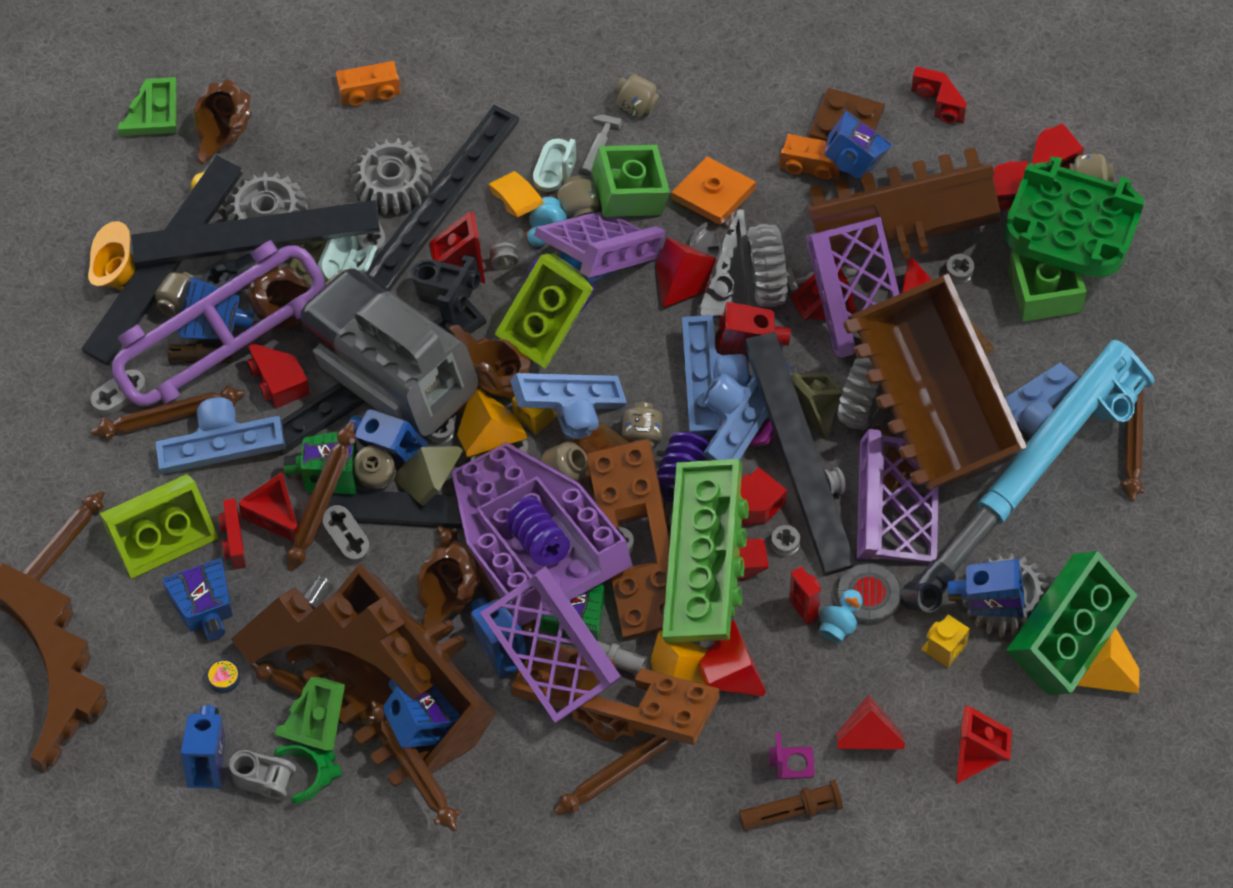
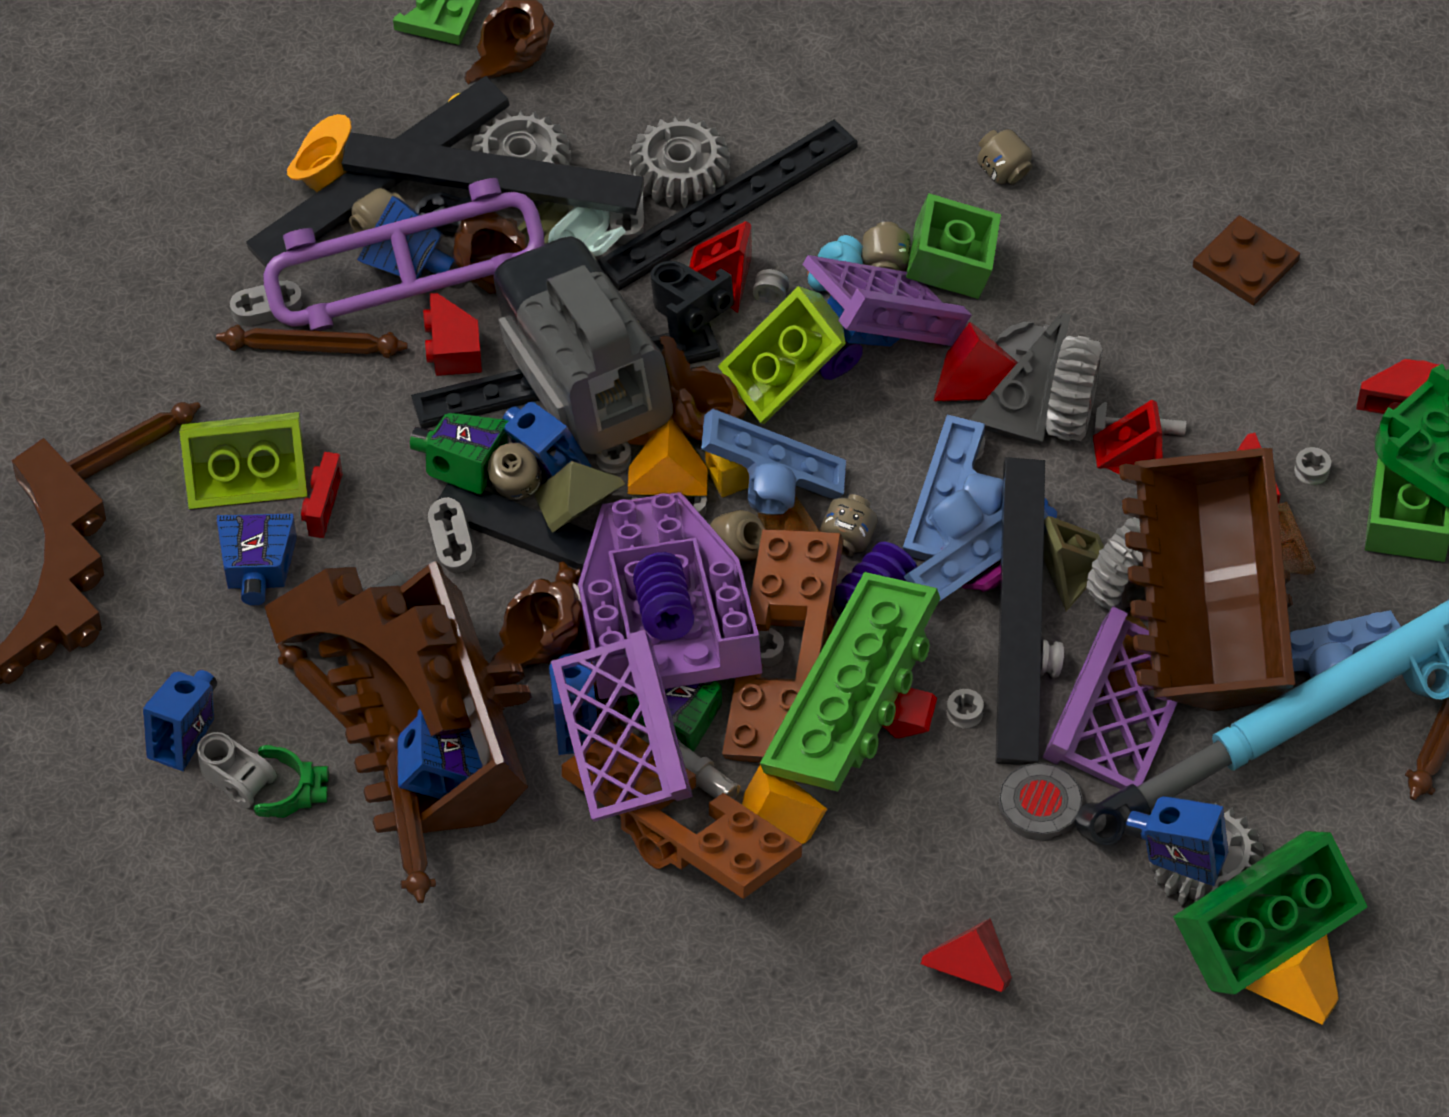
camera: 20 degrees right, 5 degrees down
(192, 352) = (361, 283): dark brown pin -> none
(219, 438) = (354, 386): medium blue plate -> none
(223, 676) = (242, 648): tile -> none
(271, 508) = (377, 479): red slope -> none
(315, 714) = (321, 720): bright green wing -> none
(321, 496) = (435, 481): reddish brown wheel -> none
(368, 83) = (700, 54): orange bracket -> none
(516, 194) = (814, 222): light orange slope -> none
(554, 164) = (876, 203): light aqua bracket -> none
(600, 140) = (959, 176): light grey piece -> none
(612, 773) = (642, 905): reddish brown wheel -> none
(713, 190) = (1050, 288): orange plate -> none
(731, 666) = (834, 826): red slope -> none
(744, 322) = (1020, 439): red torso -> none
(763, 496) = (953, 649): red slope -> none
(779, 756) = (848, 954): magenta bracket -> none
(805, 594) = (955, 773): red plate -> none
(807, 803) = (859, 1016): reddish brown pin -> none
(808, 157) = (1187, 287): orange bracket -> none
(830, 287) = (1138, 411): medium lavender fence -> none
(840, 621) = (988, 819): medium azure animal -> none
(855, 146) = (1240, 288): blue torso -> none
(910, 208) = (1266, 374): reddish brown piece -> none
(946, 640) = (1107, 877): yellow brick -> none
(949, 103) = (1377, 272): red slope -> none
(981, 743) = (1100, 1017): red slope -> none

